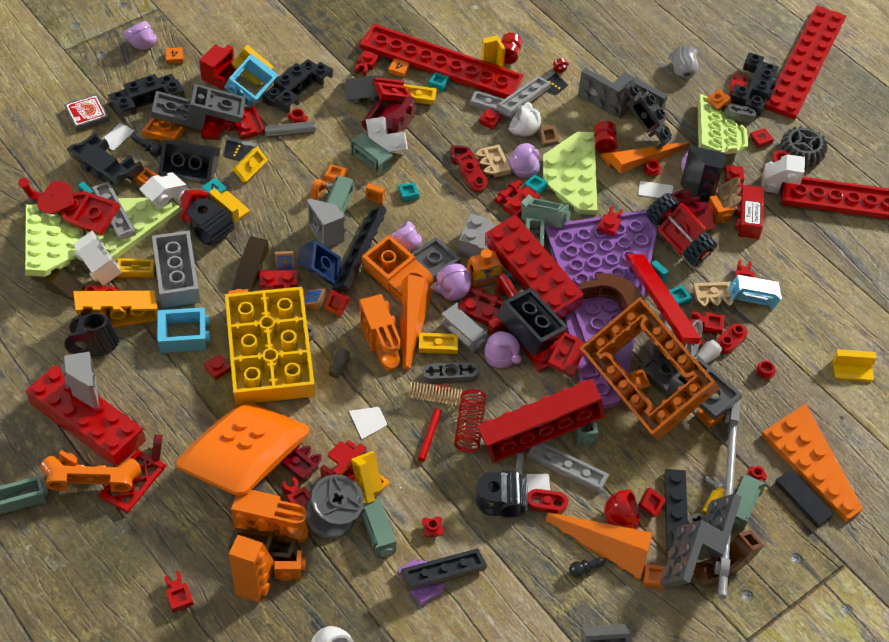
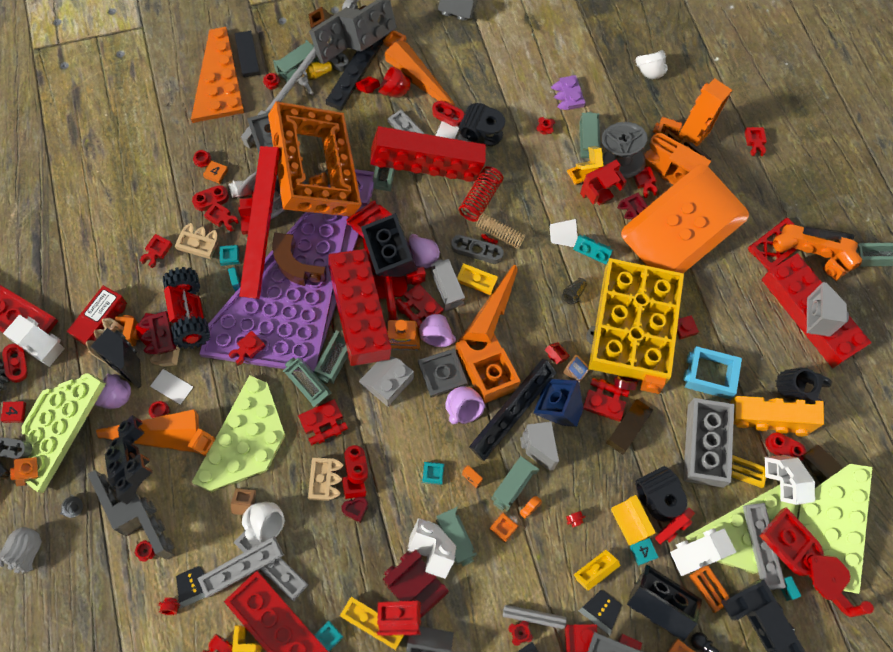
camera: 160 degrees left, 15 degrees up
(79, 488) = (825, 233): none -> black tile
(156, 449) = (755, 261): dark red tile -> none
(278, 192) = (575, 519): none -> red plate
(284, 260) = (593, 421): slope -> none
(325, 407) = (593, 250): none -> teal hinge
(380, 330) = (529, 298): orange brick -> none
(429, 435) = (517, 201): red bar -> none
(443, 569) = (552, 84): black plate -> none
(490, 119) = (296, 549): red plate -> none
(524, 161) = (291, 466): lavender piece -> none
(536, 184) = (294, 433): teal tile -> none
(579, 569) = (449, 59): black bar -> none
(602, 152) = (201, 442): none -> orange tile
(605, 137) = (184, 466): red wheel -> none
(672, 97) = (71, 507): none -> dark grey plate
(734, 172) = (81, 368): red plate -> none
(744, 363) = (215, 172): none -> orange tile
(755, 291) = (160, 224): medium azure window -> none
(853, 365) = (124, 137): yellow panel -> none

